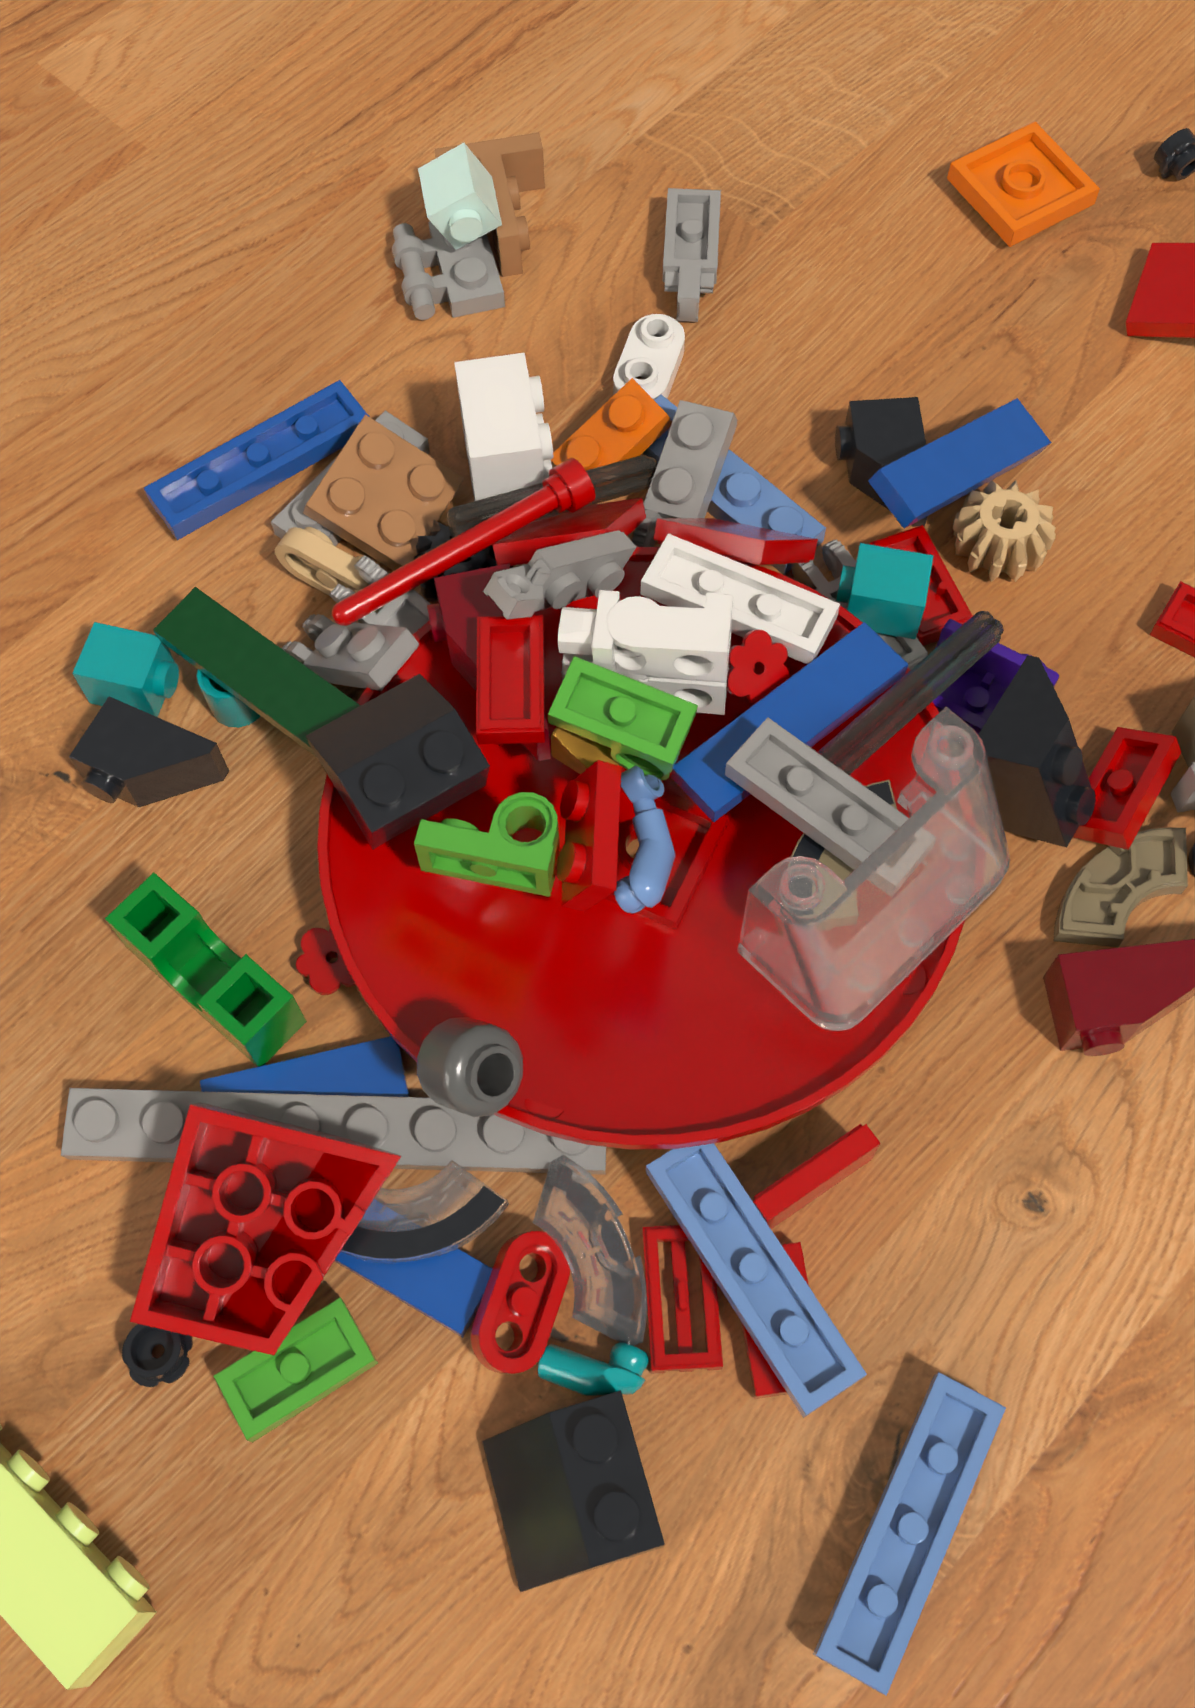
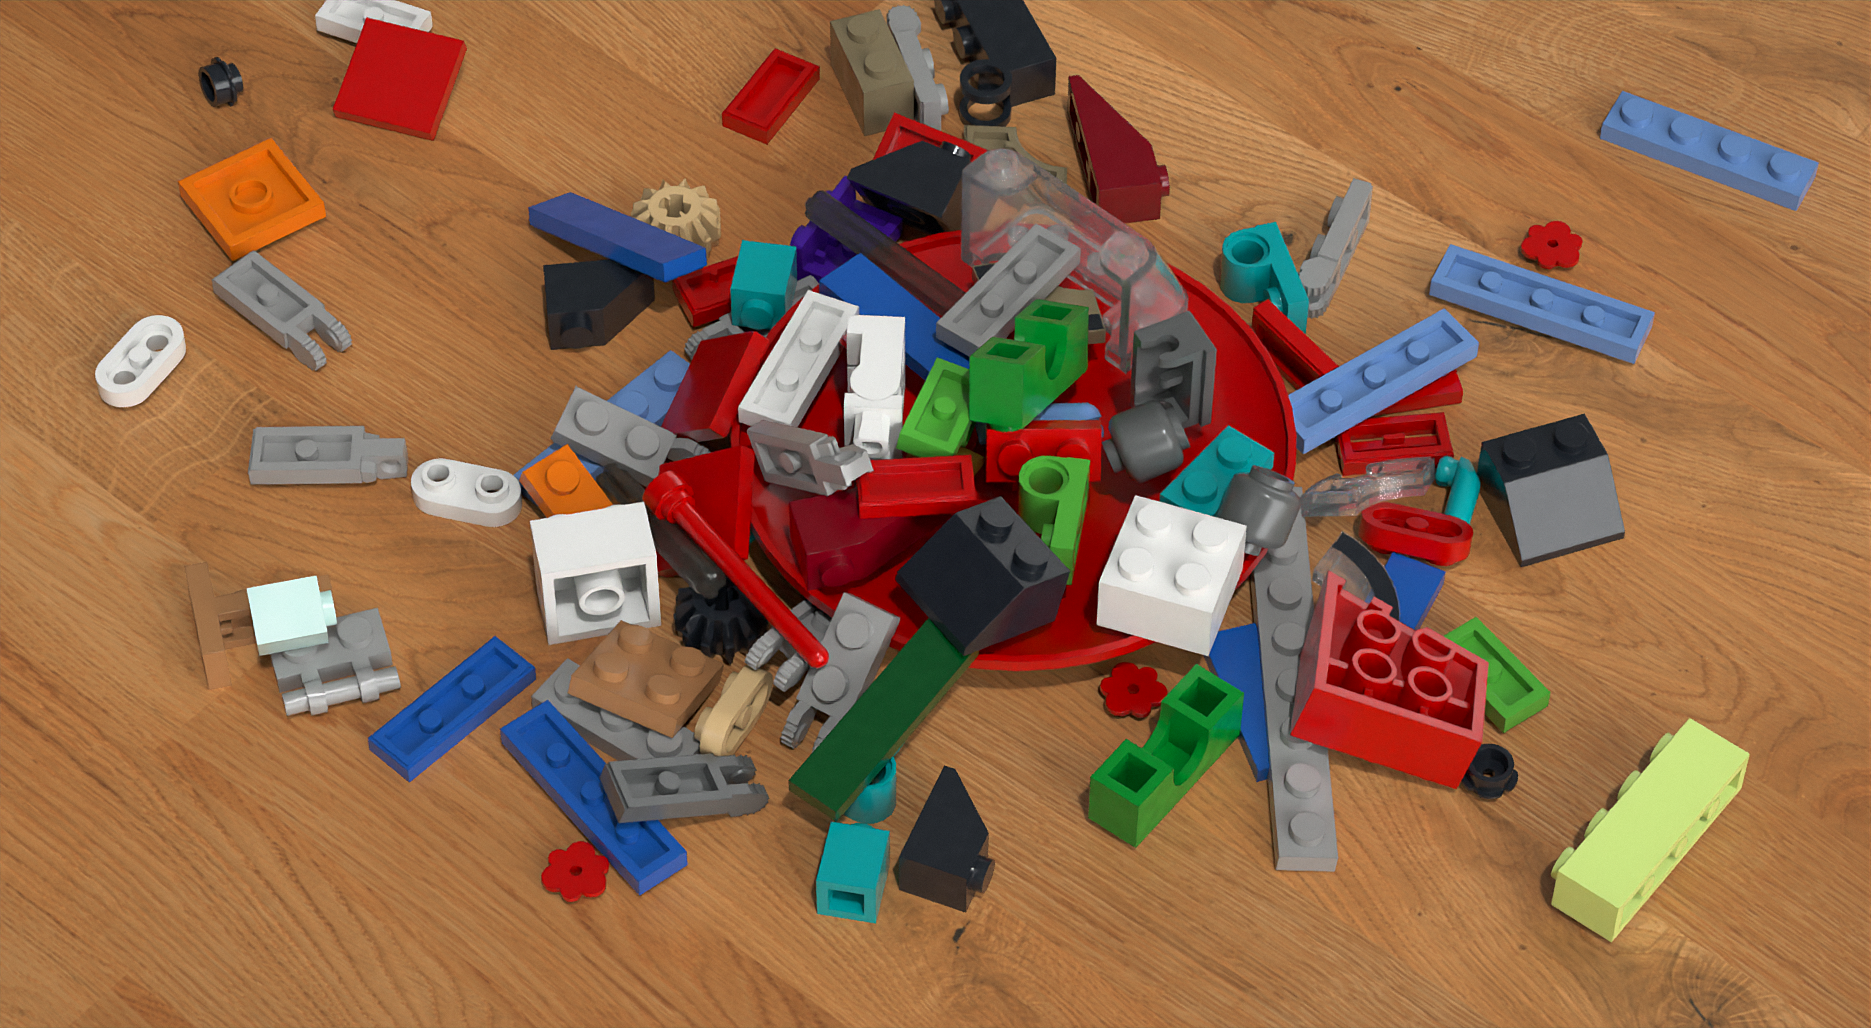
camera: 95 degrees left, 15 degrees down
(179, 447) = (576, 872): none -> red plant
(236, 513) = (682, 787): none -> dark grey hinge
(386, 958) = (1171, 575): none -> white brick
(388, 357) = (452, 708): none -> blue tile
(555, 1037) = (1207, 477): none -> teal plate
(599, 950) = (1146, 441): none -> dark grey head
(684, 984) = (1175, 367): none -> dark grey hinge
(716, 837) = (1024, 375): none -> green arch
(812, 112) = (133, 365): none -> white plate
(879, 211) = (280, 308): none -> light grey hinge
(947, 1167) = (1260, 268): none -> teal plate
(992, 1250) = (1335, 250): none -> light grey hinge
(1048, 1571) = (1552, 245): none -> red plant

